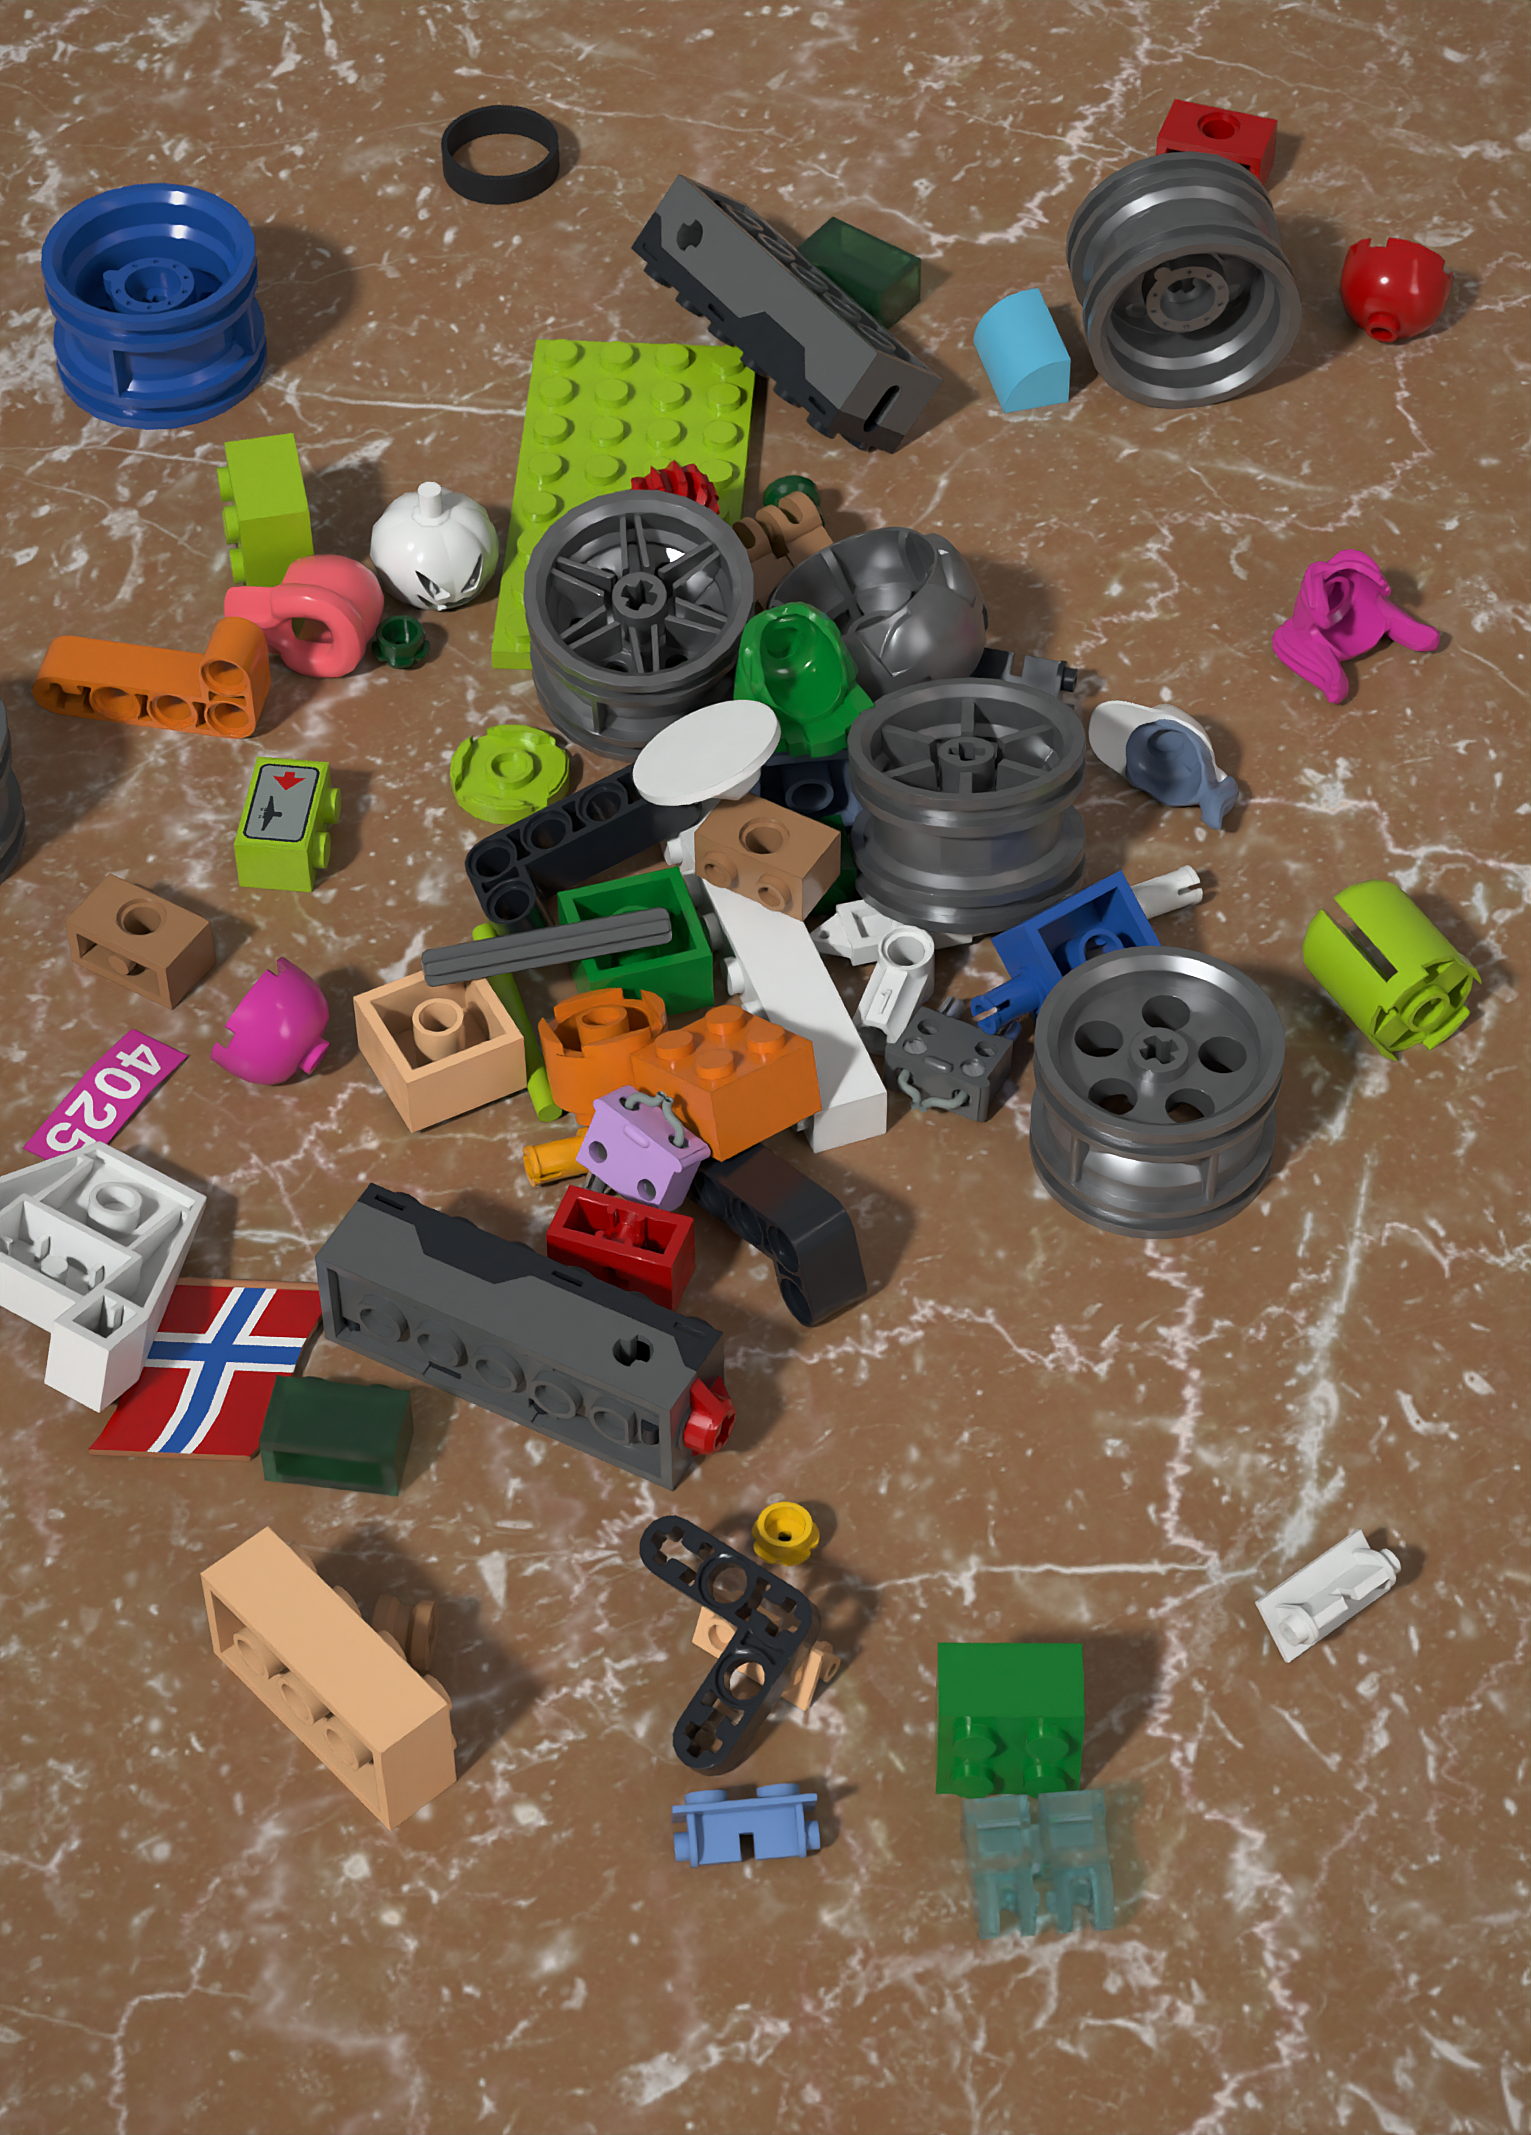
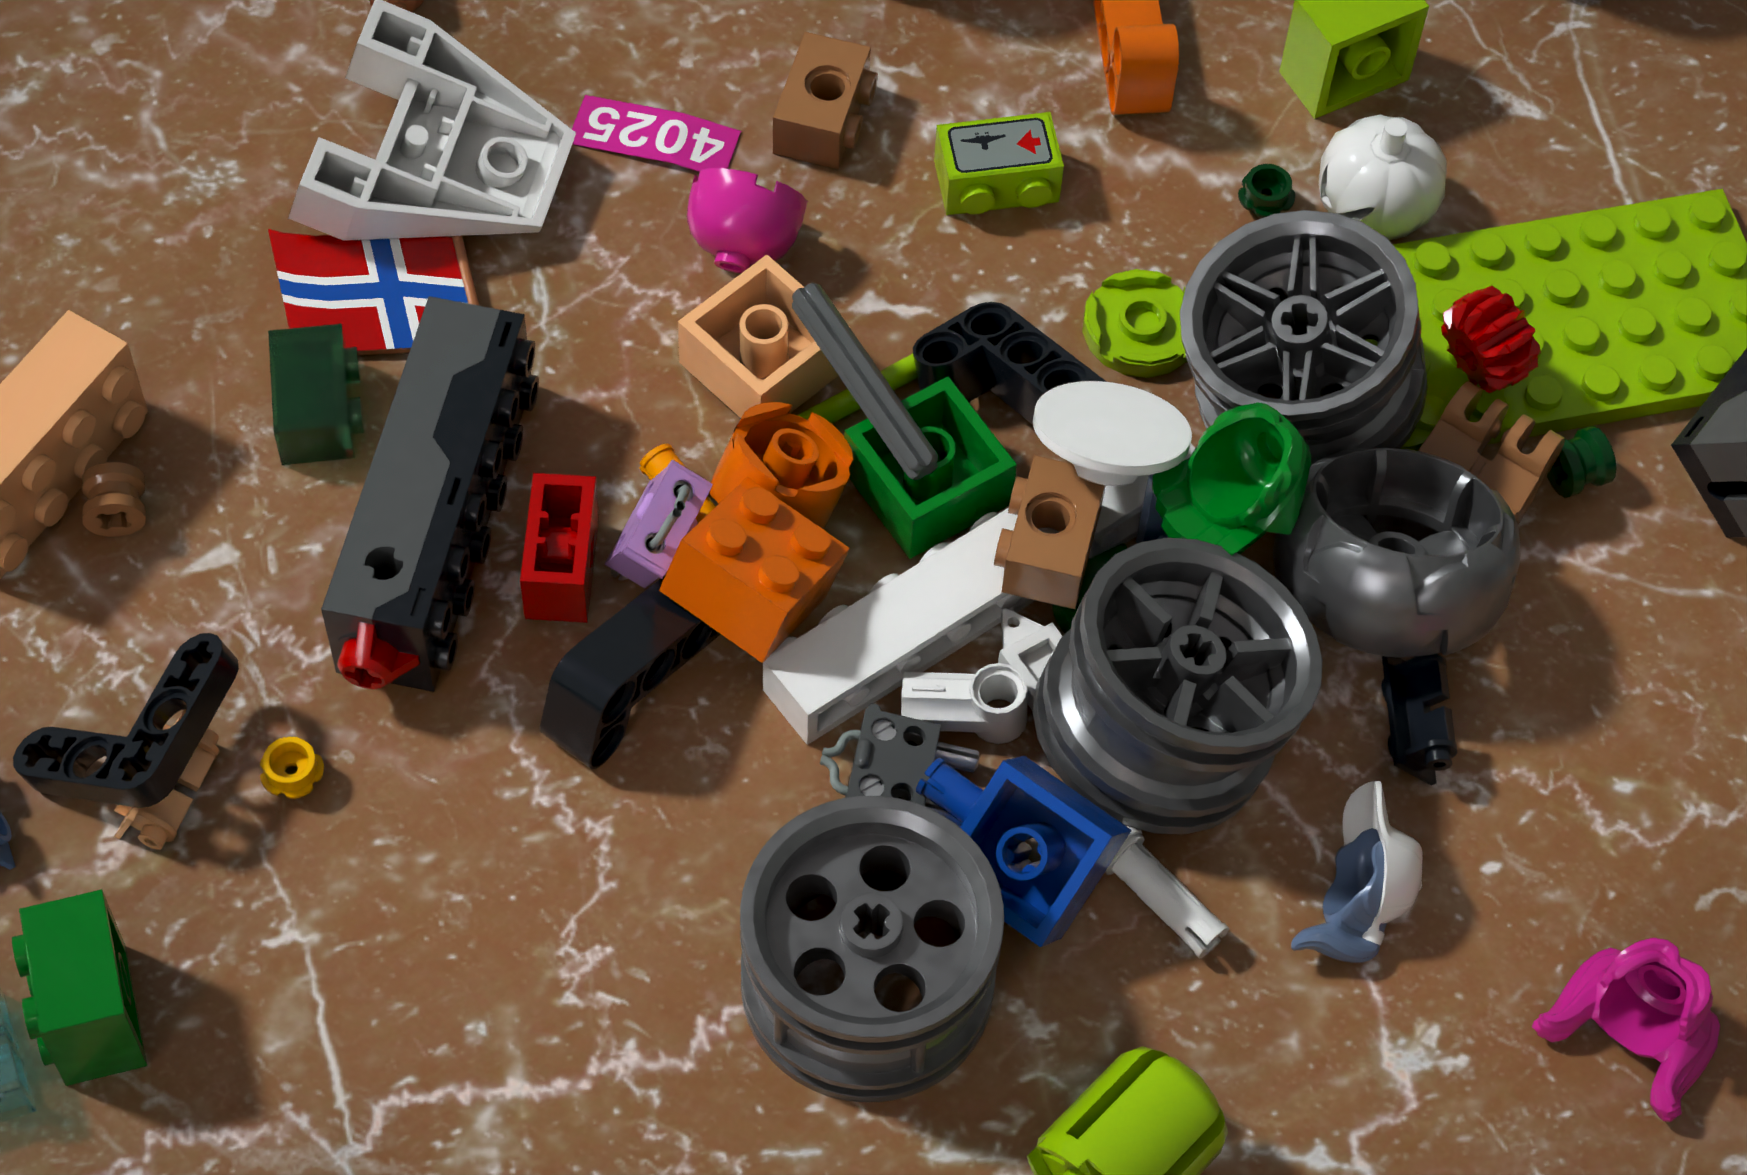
camera: 70 degrees right, 10 degrees up
(339, 608) = (1260, 110): coral piece -> none

